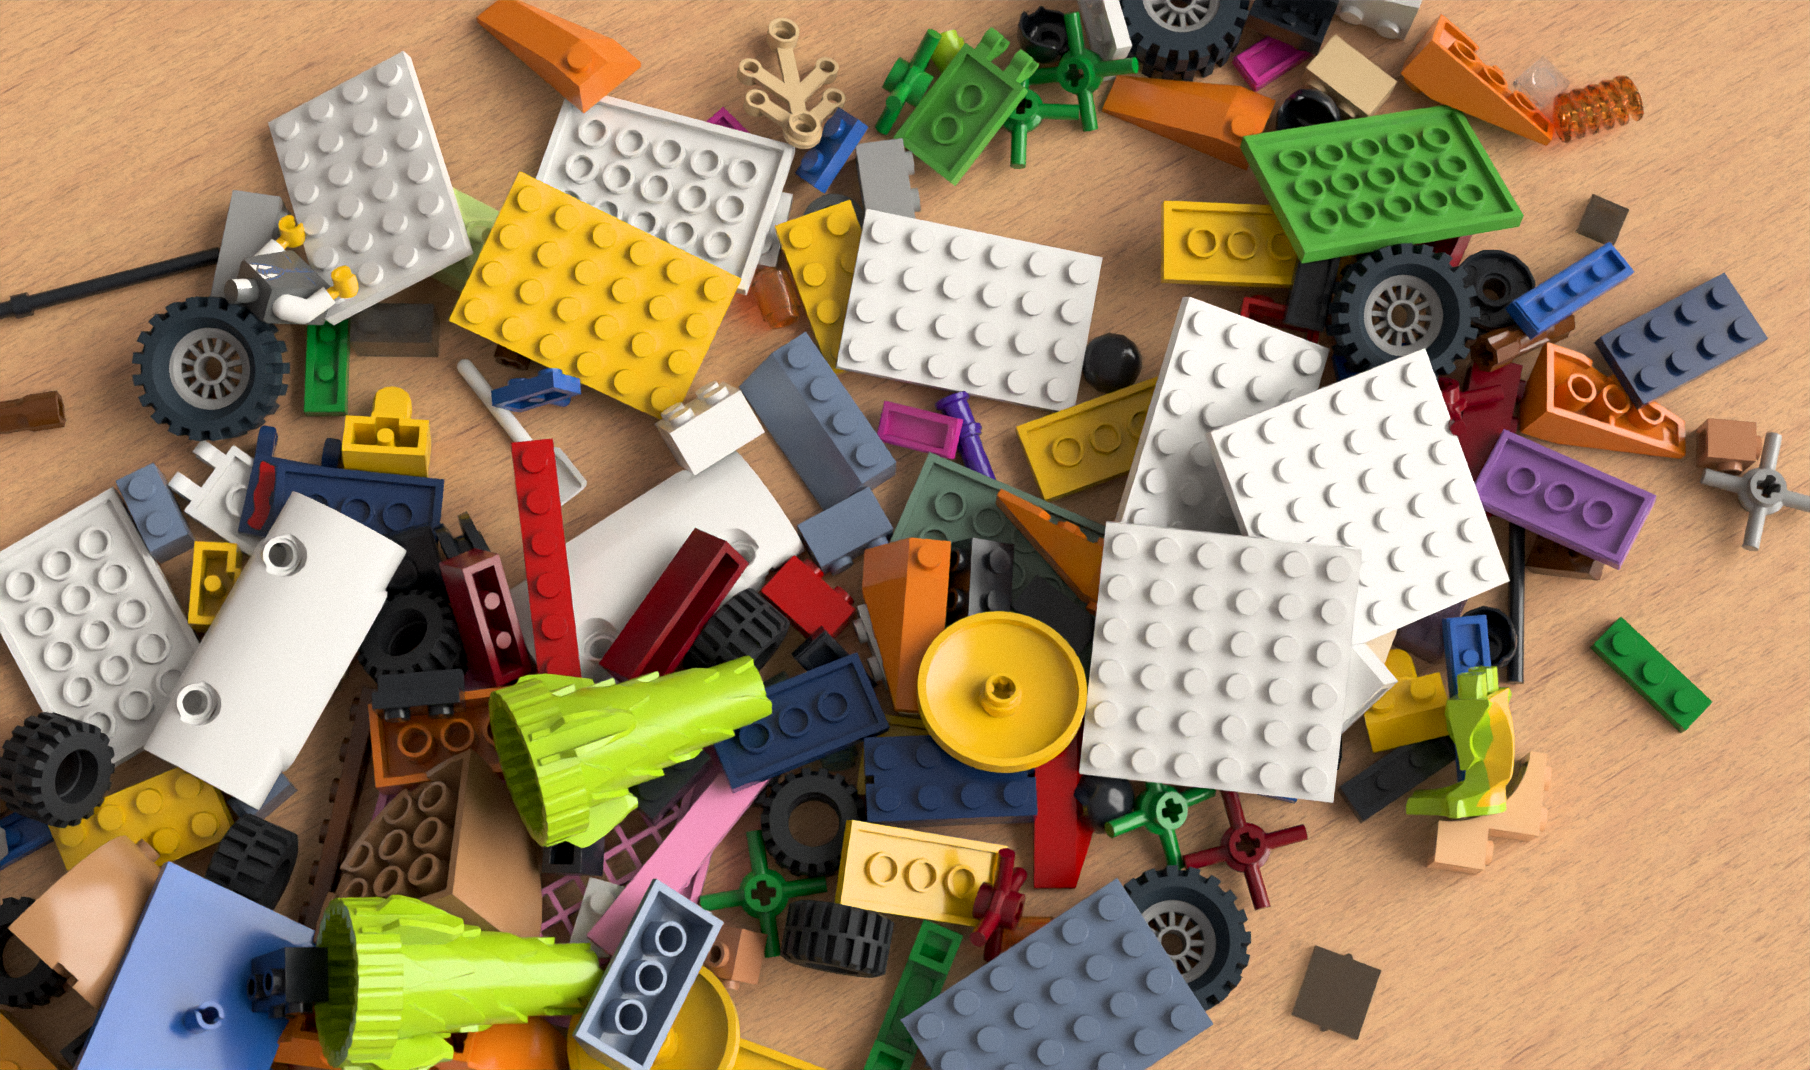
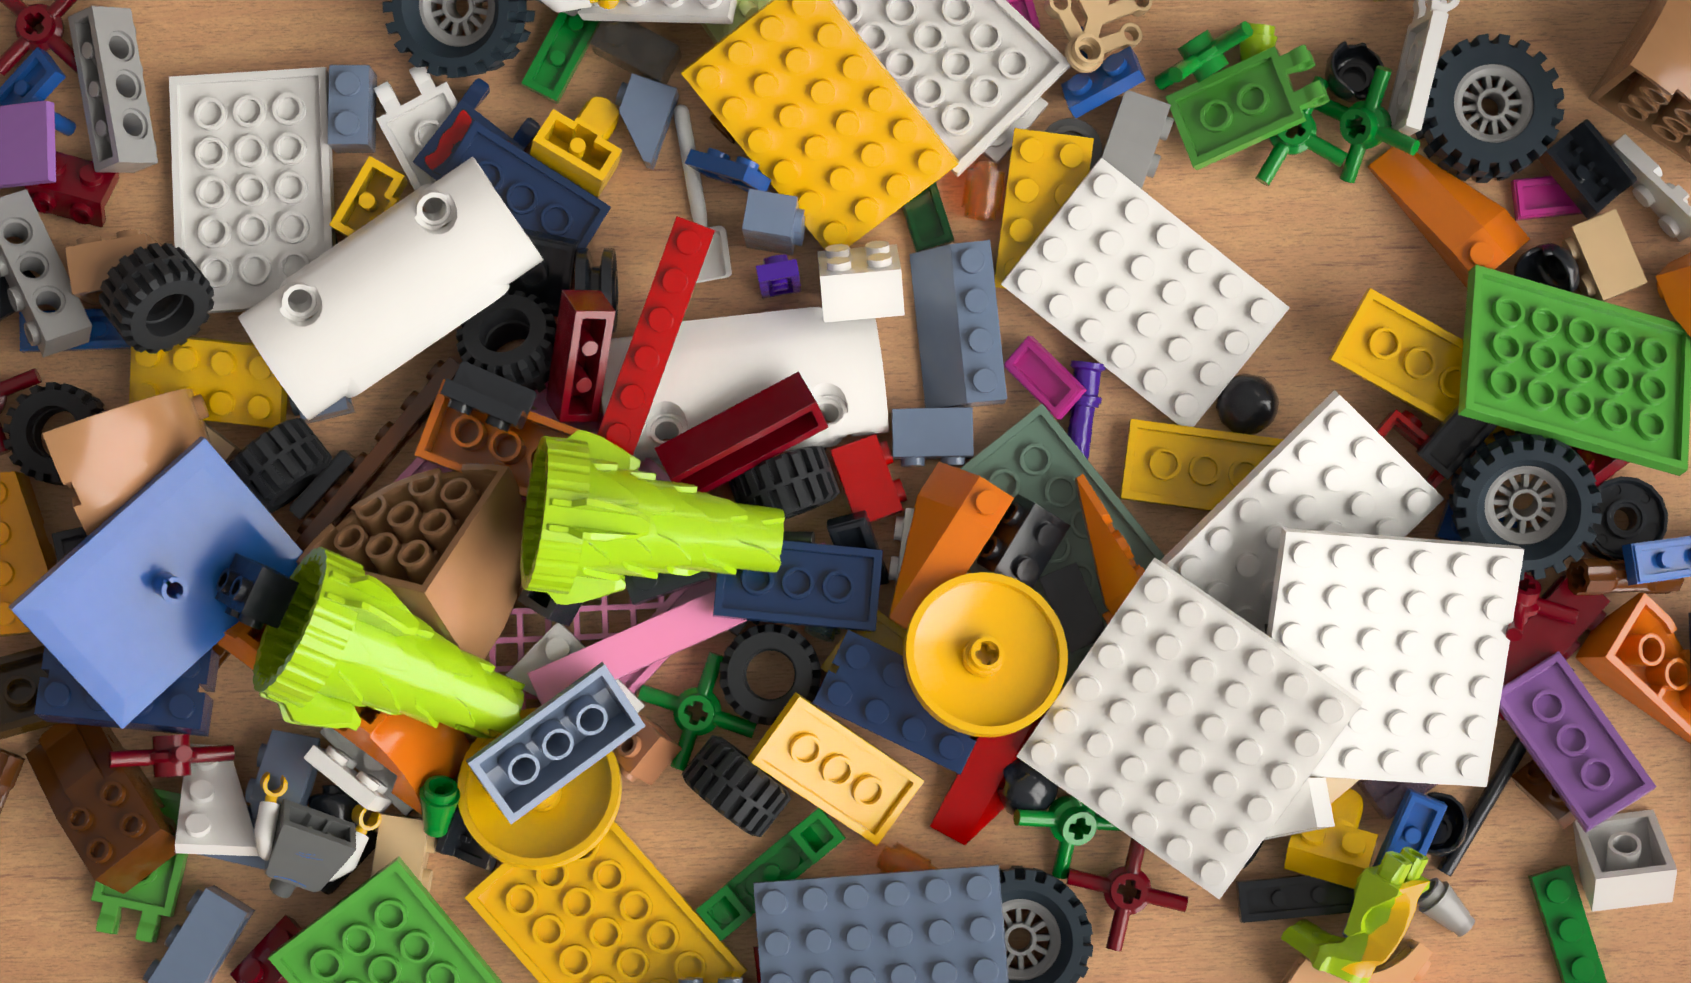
camera: 35 degrees right, 10 degrees up
(300, 869) = (322, 484): none -> black tile
(434, 382) = (647, 113): none -> sand blue slope
(602, 412) = (773, 222): none -> sand blue brick
(632, 457) = (778, 276): none -> dark purple plate
(738, 347) = (927, 220): none -> dark green tile
(998, 905) = (887, 831): dark red bar -> none
(1535, 711) = (1445, 907): none -> light grey cone
(1665, 586) = (1625, 862): none -> white slope

